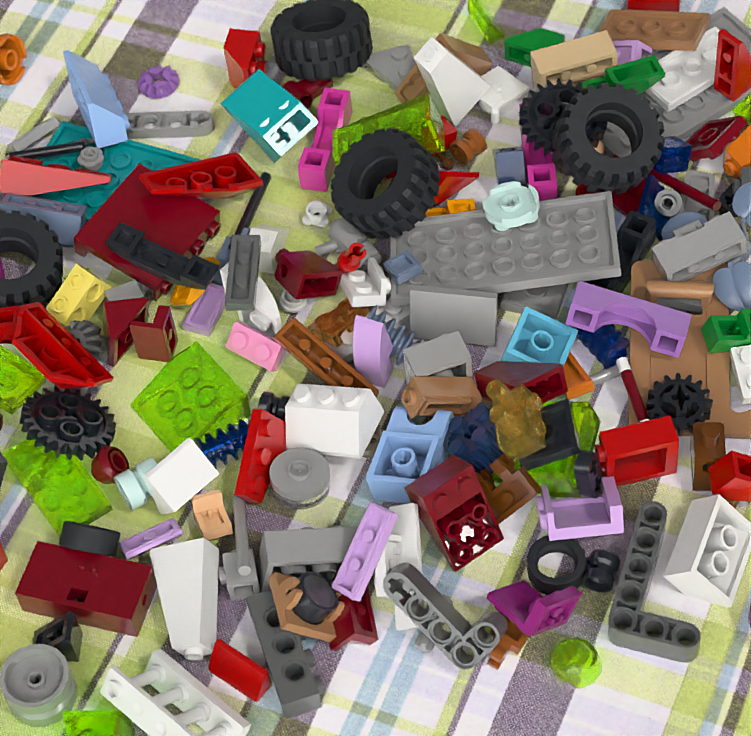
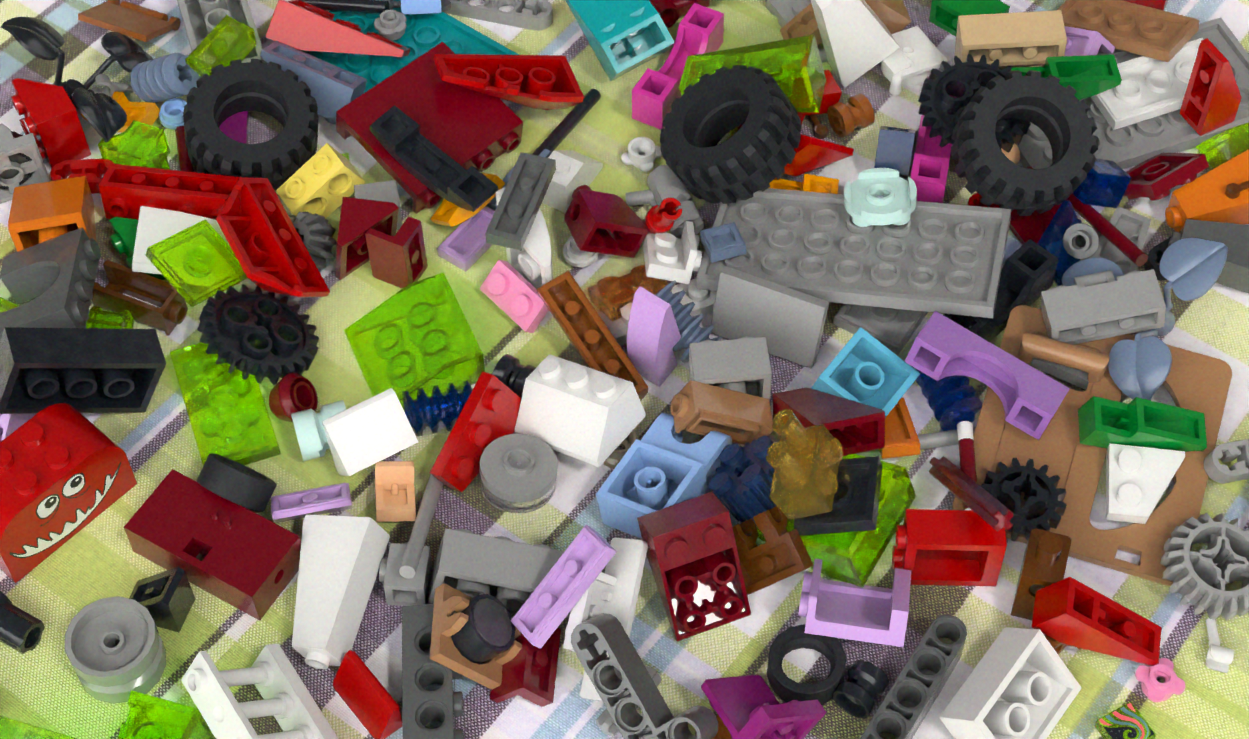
camera: 10 degrees right, 0 degrees up
(588, 473) = (878, 559): black beam -> none
(642, 408) = (971, 494): none -> dark red axle

